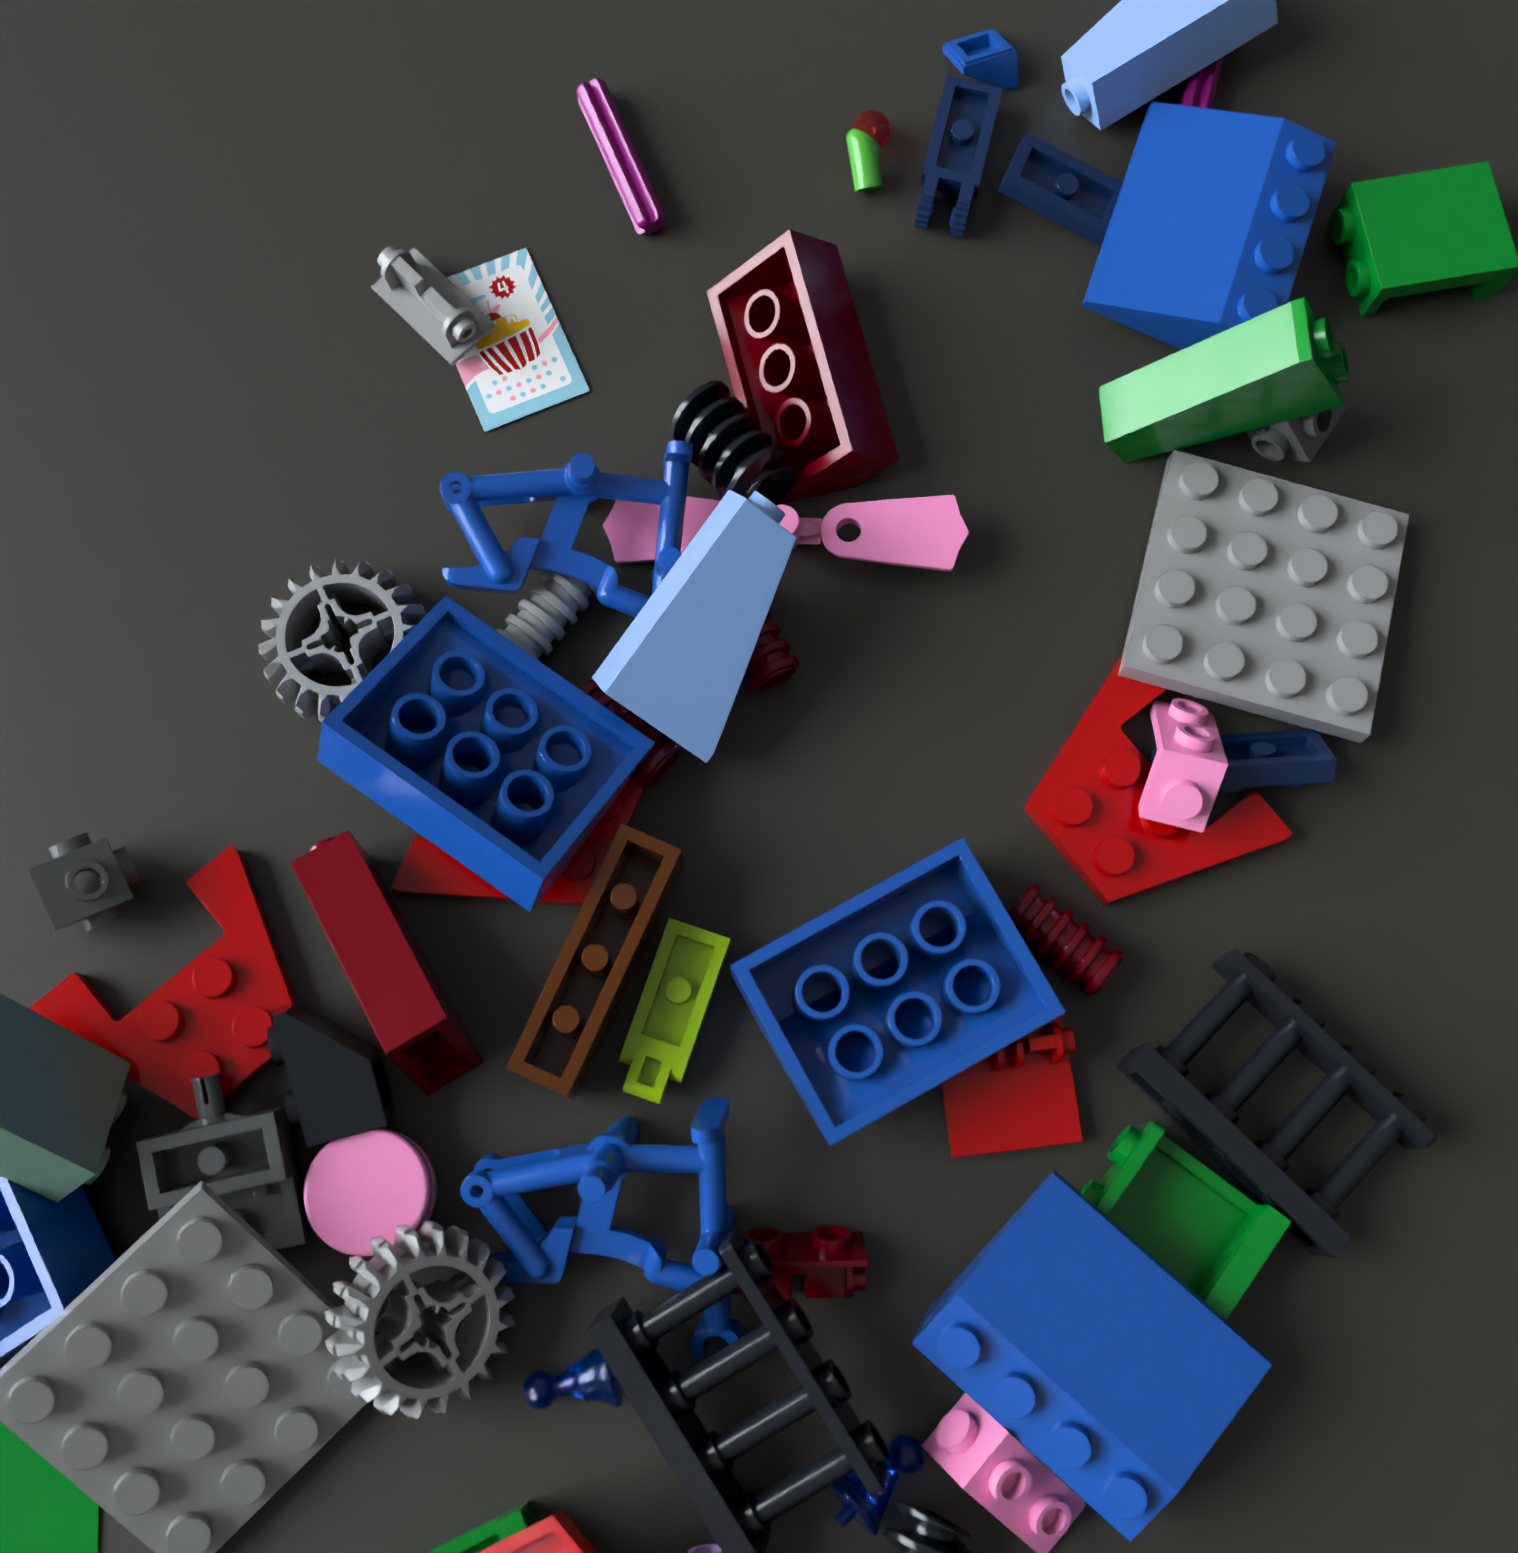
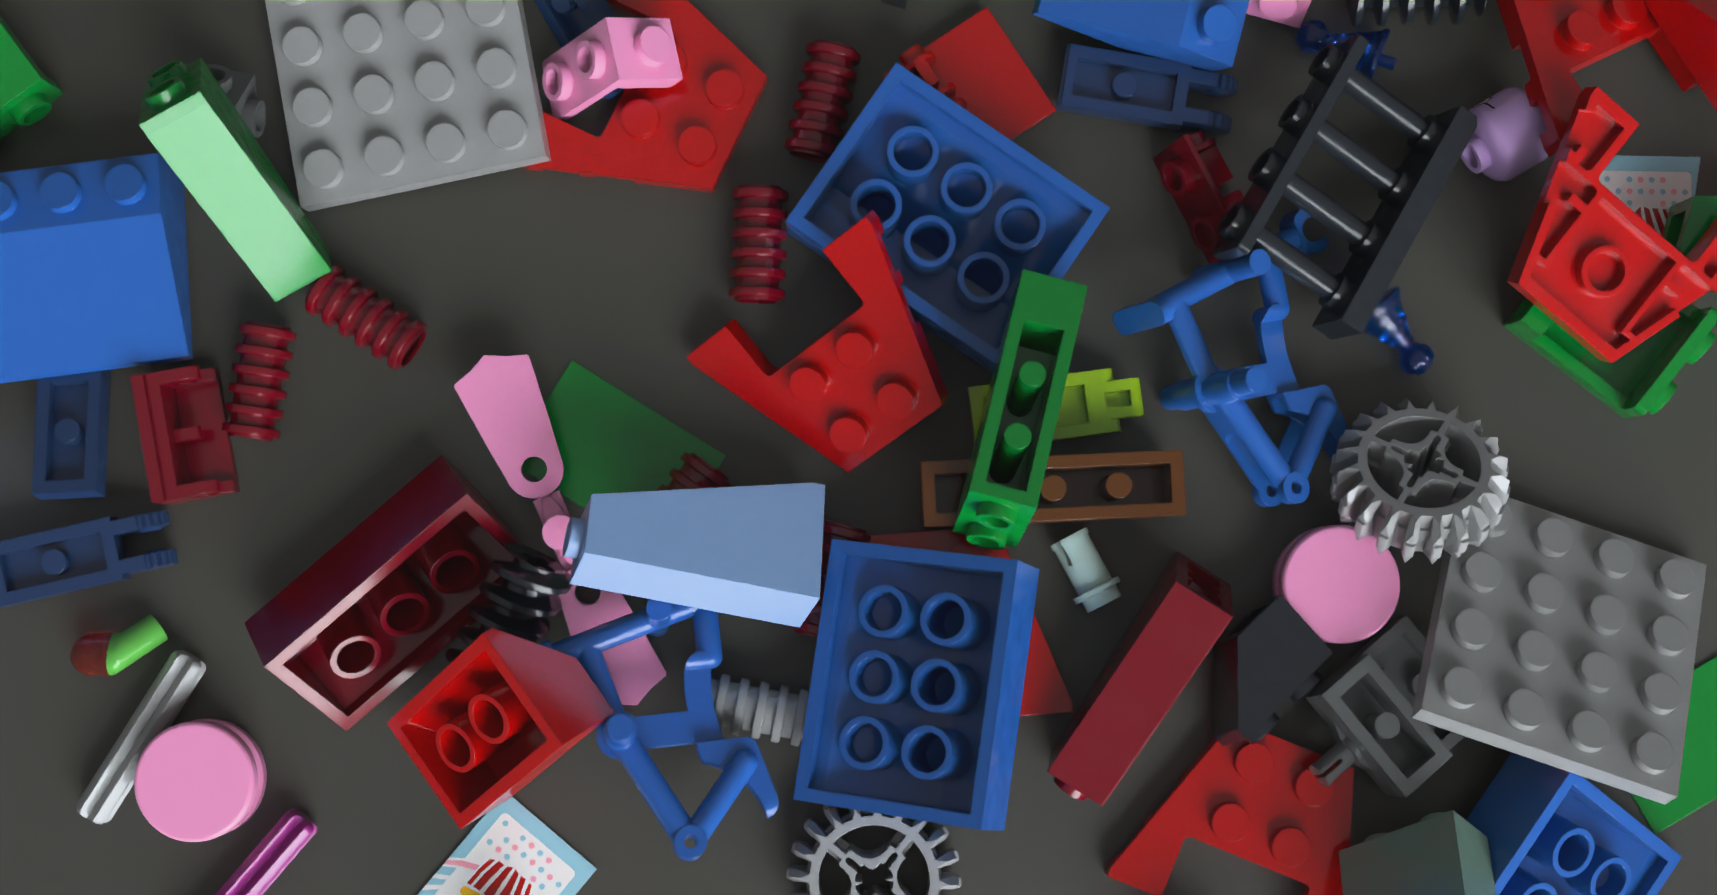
camera: 115 degrees left, 10 degrees up
(508, 965) = (1086, 570): none -> light aqua pin
(644, 388) = (497, 721): none -> red slope
(681, 951) = (1020, 411): none -> green slope
(726, 161) = (200, 779): none -> bright pink head
(786, 137) = (150, 718): none -> light grey axle
(786, 836) = (855, 381): none -> red wing
(838, 612) = (612, 440): none -> green sticker
(934, 1248) = (1140, 90): none -> dark blue hinge
(955, 816) = (758, 244): none -> dark red piece
(1019, 273) = (183, 434): none -> dark red hinge
(1036, 350) = (259, 380): none -> dark red piece
(1045, 461) = (366, 317): none -> dark red piece

